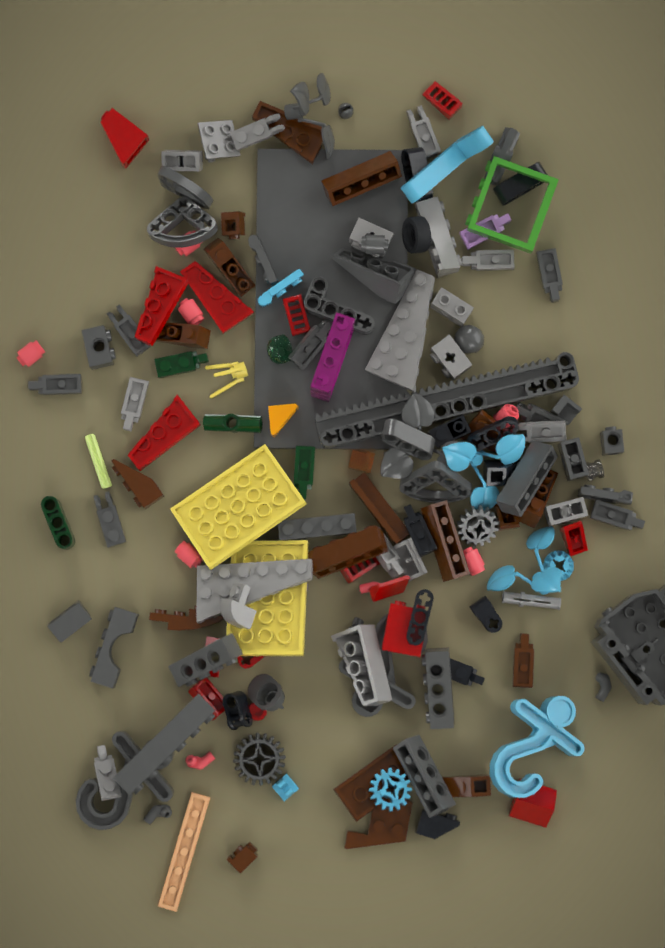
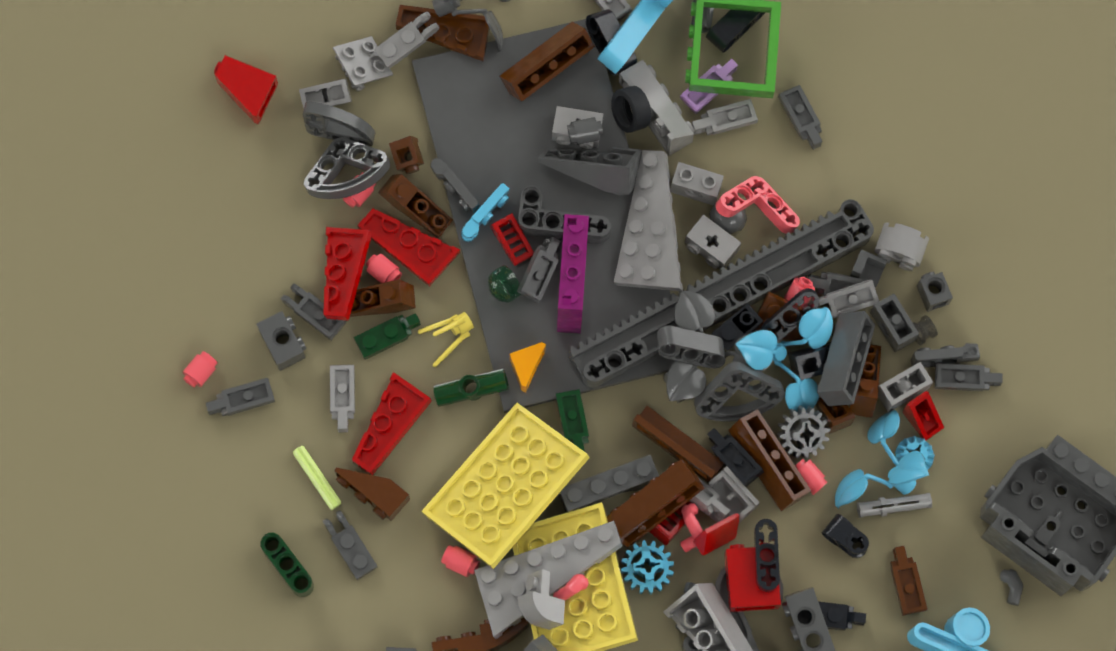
camera: 15 degrees left, 10 degrees down
(268, 600) = (573, 586): none -> coral arm
(330, 589) = (658, 566): none -> medium azure gear
(361, 461) = (640, 393): clear orange panel -> none
(371, 573) = (688, 513): none -> coral arm
(498, 331) = (760, 197): none -> coral beam
(596, 399) = (901, 245): none -> light grey brick

